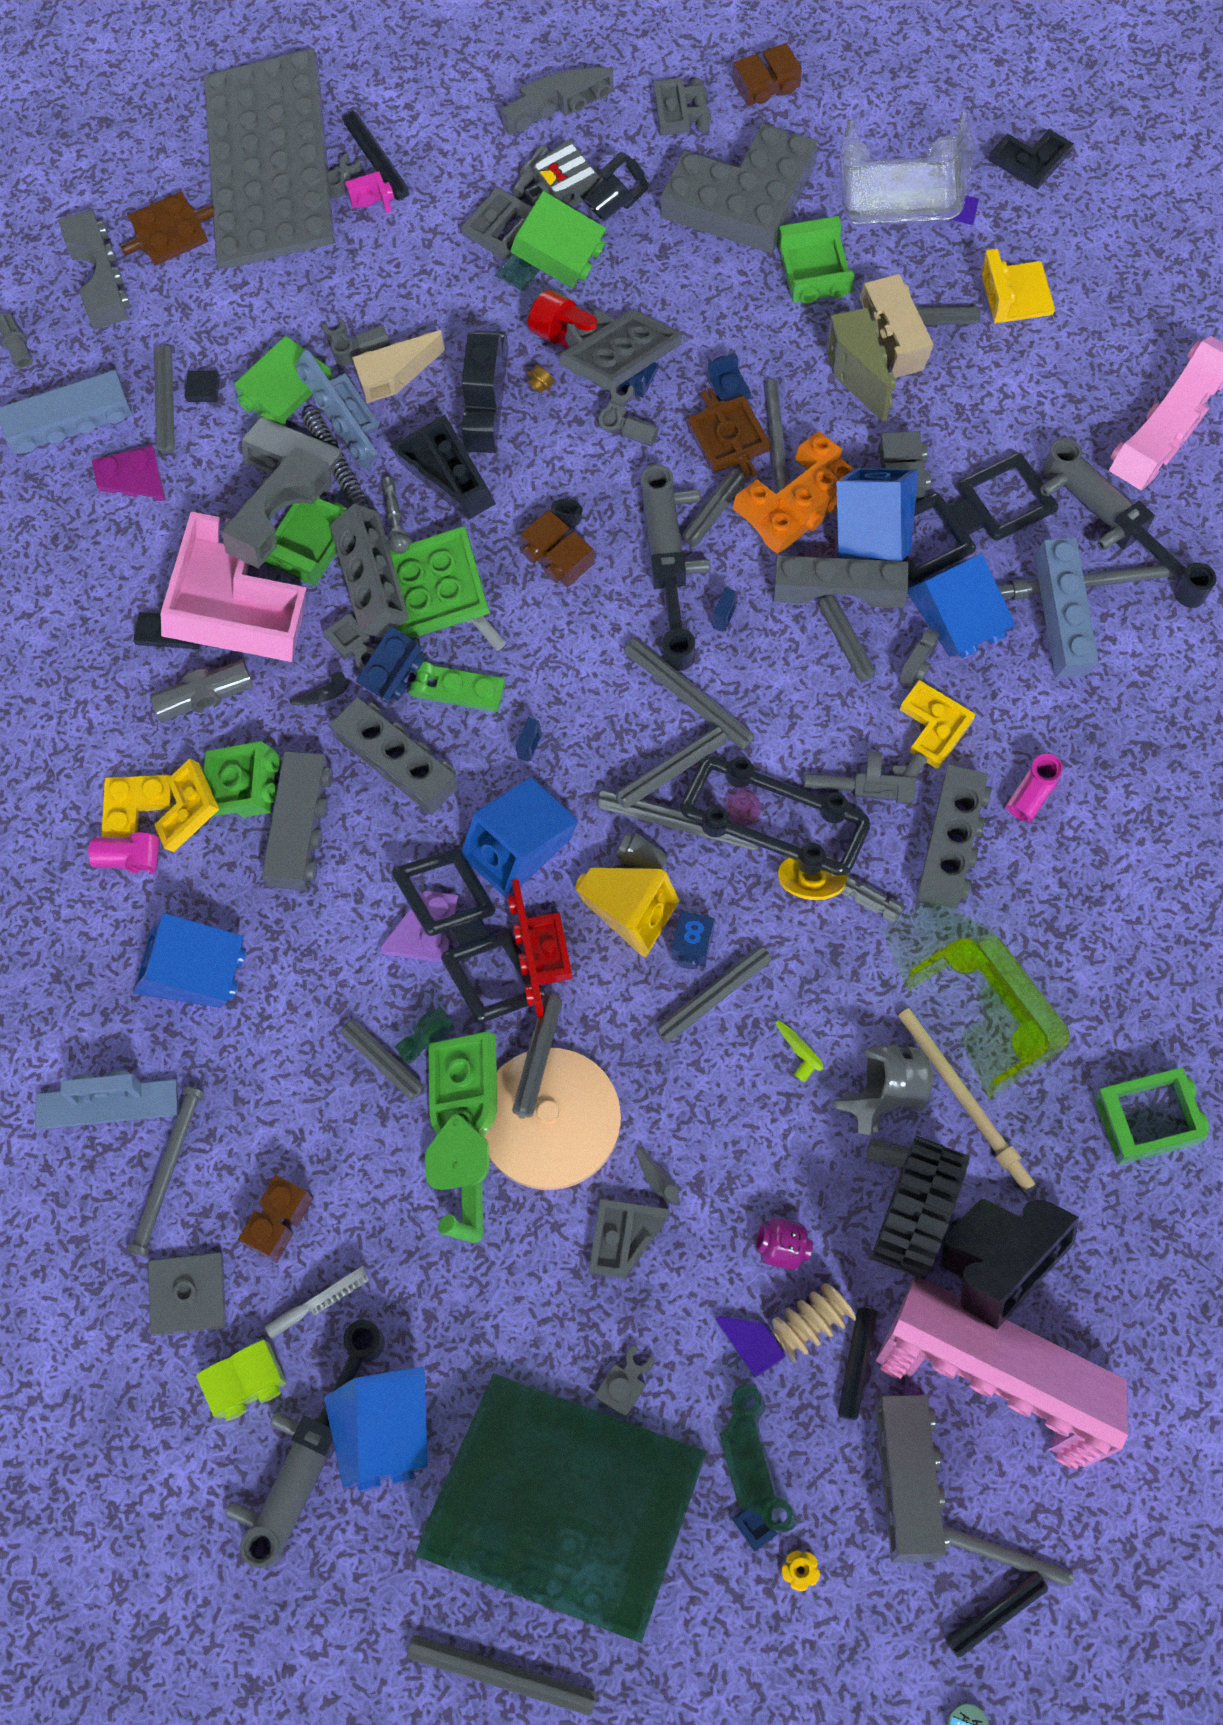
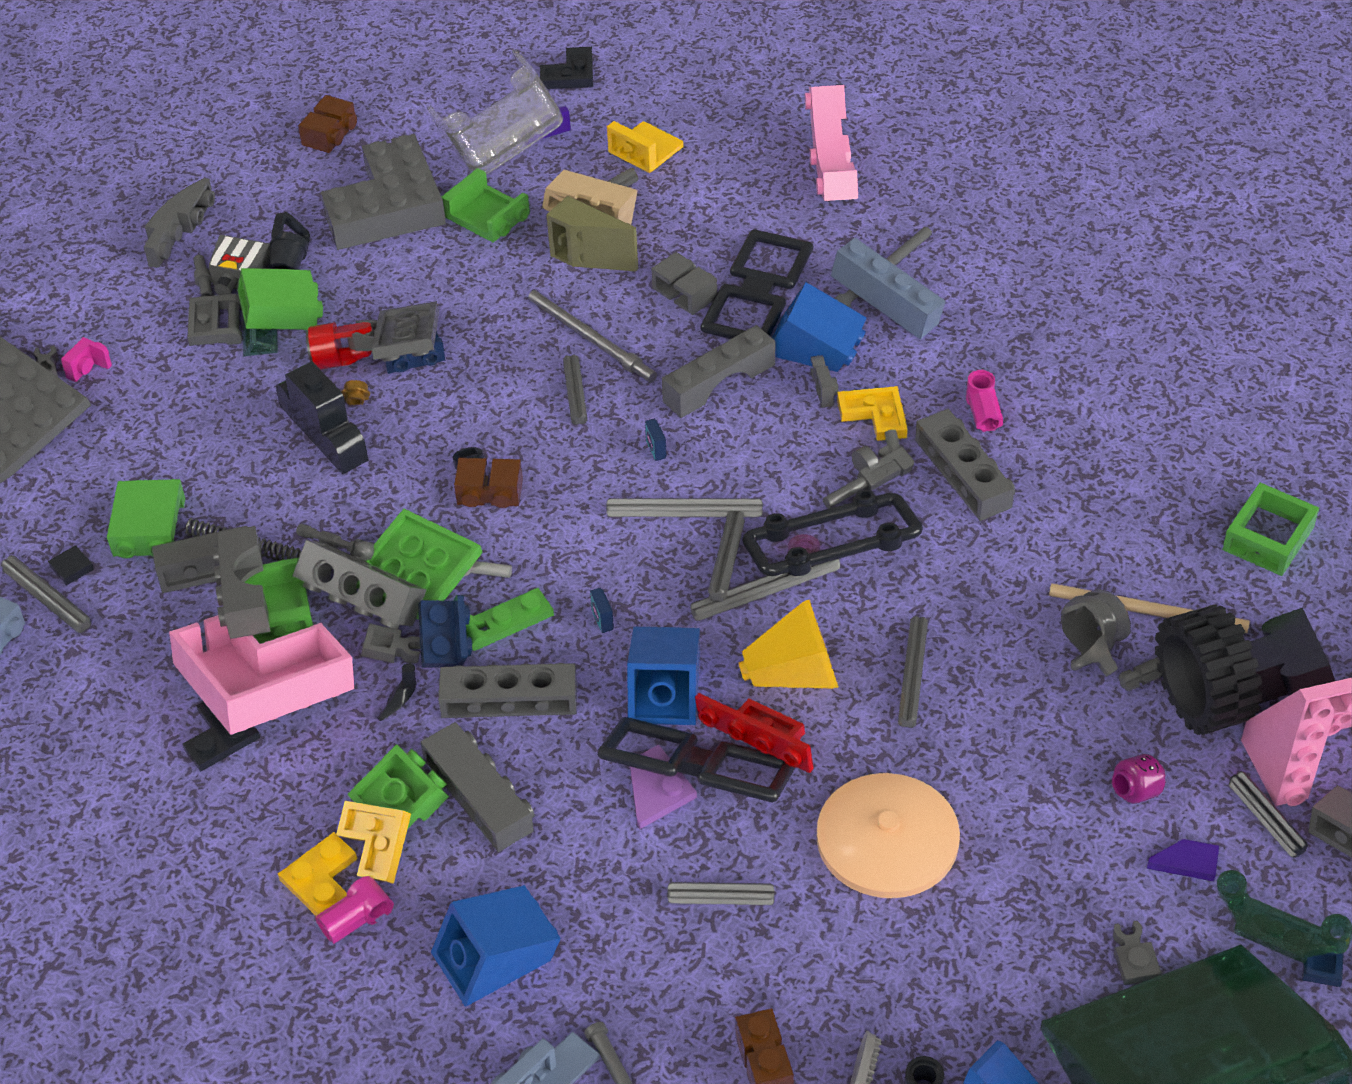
camera: 45 degrees left, 20 degrees down
(130, 473) = (69, 660): magenta wing -> none
(201, 690) = (297, 758): dark grey piece -> none
(343, 406) = (216, 499): sand blue bracket -> none
(345, 348) = (174, 466): dark grey bar -> none
(375, 154) = (53, 334): black axle -> none
(394, 366) = (226, 455): tan slope -> none
(429, 1029) = (738, 842): clear green plate -> none
(445, 467) = (346, 484): black wedge -> none
(461, 1115) = (828, 875): bright green plate -> none
(537, 1058) = (845, 798): dark grey axle -> none
(613, 419) = (441, 381): dark grey bar -> none
(623, 1236) = (1026, 864): dark grey wing -> none
(641, 853) = (758, 621): dark grey cone -> none
(658, 1178) = (1011, 813): dark grey bar -> none
(667, 558) = (582, 440): piece -> none
(672, 107) = (275, 179): dark grey plate -> none
(692, 940) = (863, 646): dark blue brick -> none
(726, 378) = (498, 311): dark blue bracket -> none
(728, 434) = (536, 340): reddish brown plate -> none
(800, 1048) = (1016, 659): lime bar -> none
(803, 502) = (643, 337): orange bracket -> none
(809, 886) = (904, 556): yellow dish -> none
(811, 1320) = (1213, 807): tan piece -> none
(847, 638) = (758, 404): dark grey axle -> none
(872, 899) = (950, 539): dark grey axle -> none
(876, 513) = (704, 311): slope -> none
(1041, 1029) = (1107, 524): clear neon green windscreen -> none
(1126, 520) = (794, 217): piece -> none

